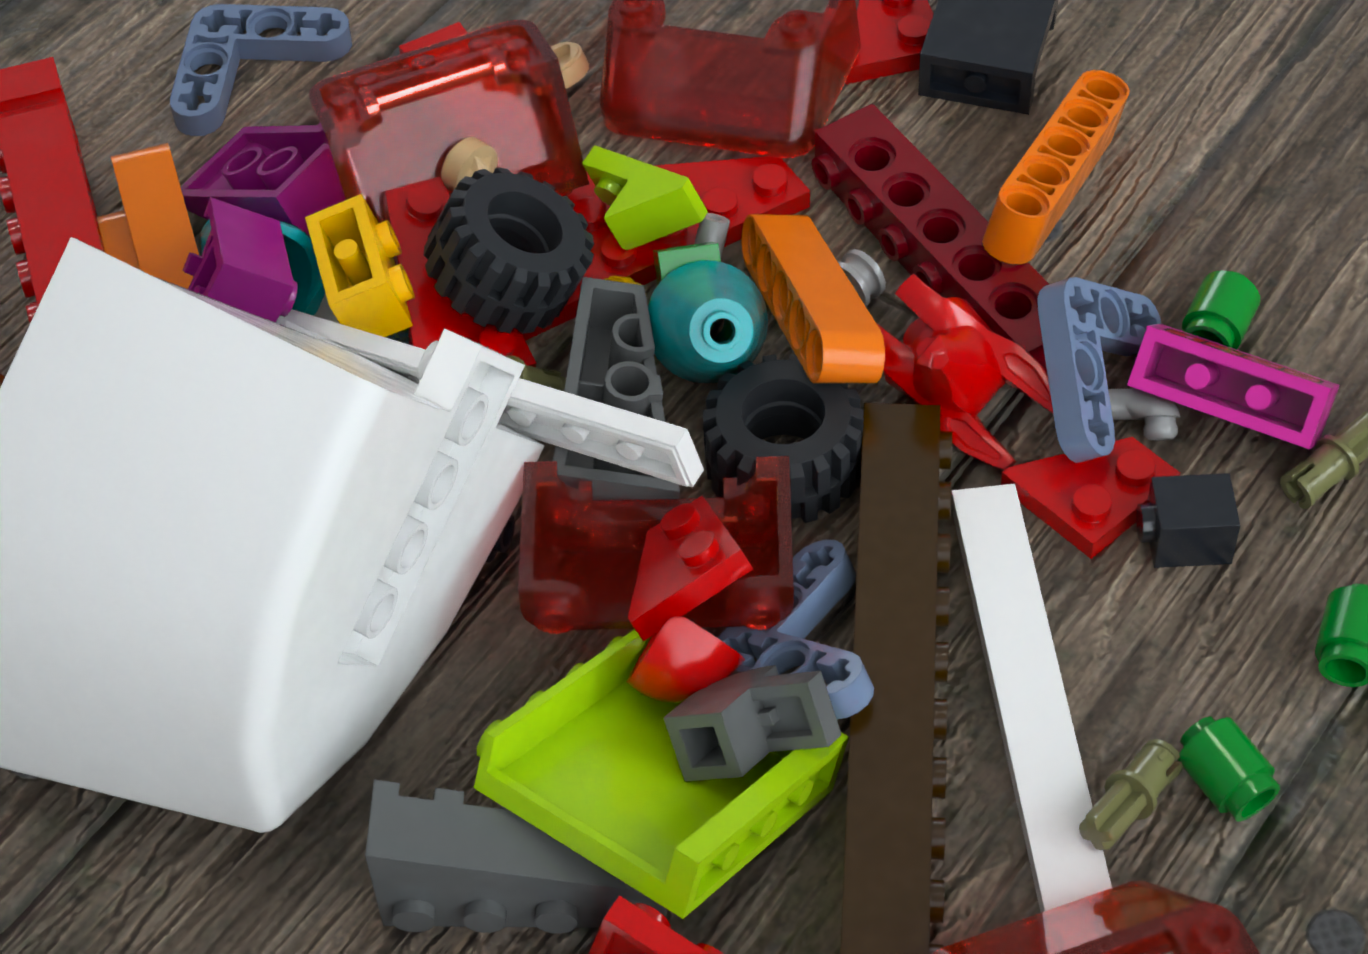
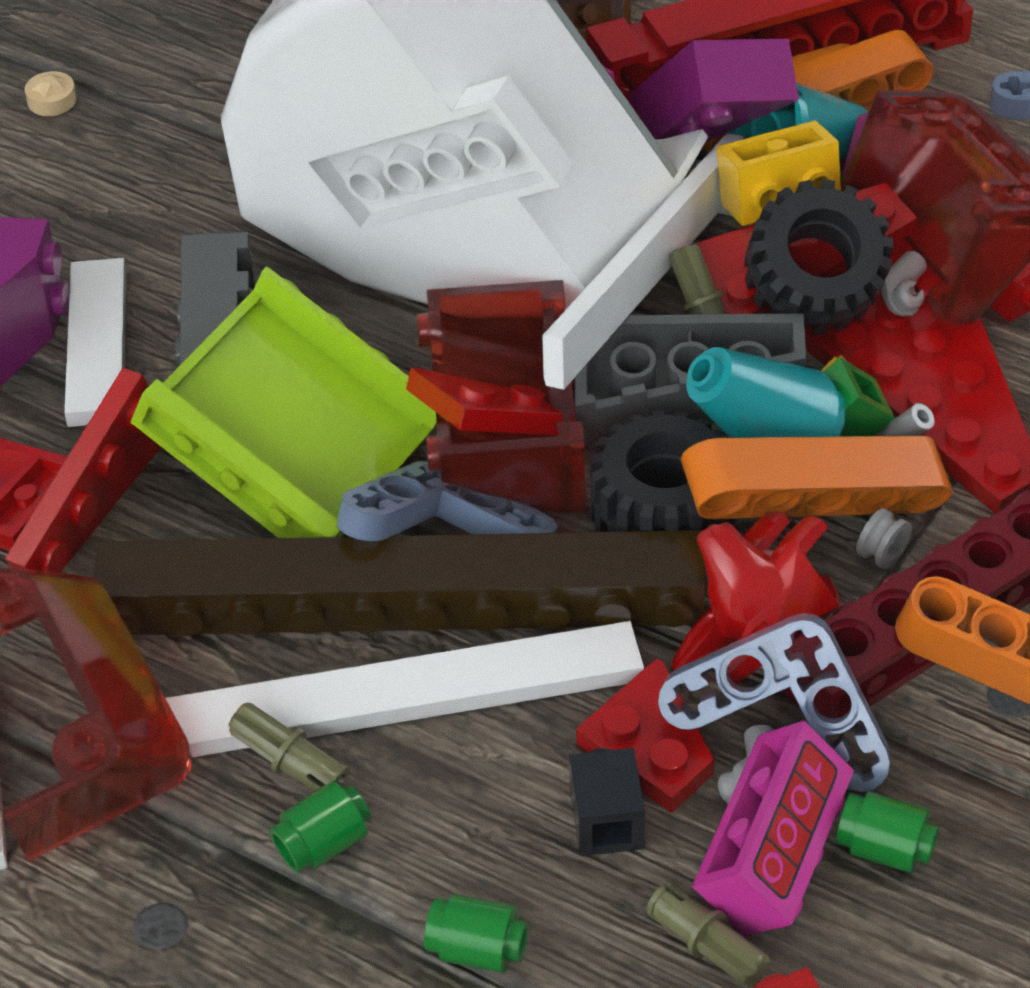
camera: 85 degrees right, 5 degrees down
(465, 159) = (932, 234): tan tile -> none
(642, 198) = (924, 353): lime slope -> none
(682, 662) = (392, 427): red helmet -> none
(745, 717) = (327, 455): dark grey brick -> none

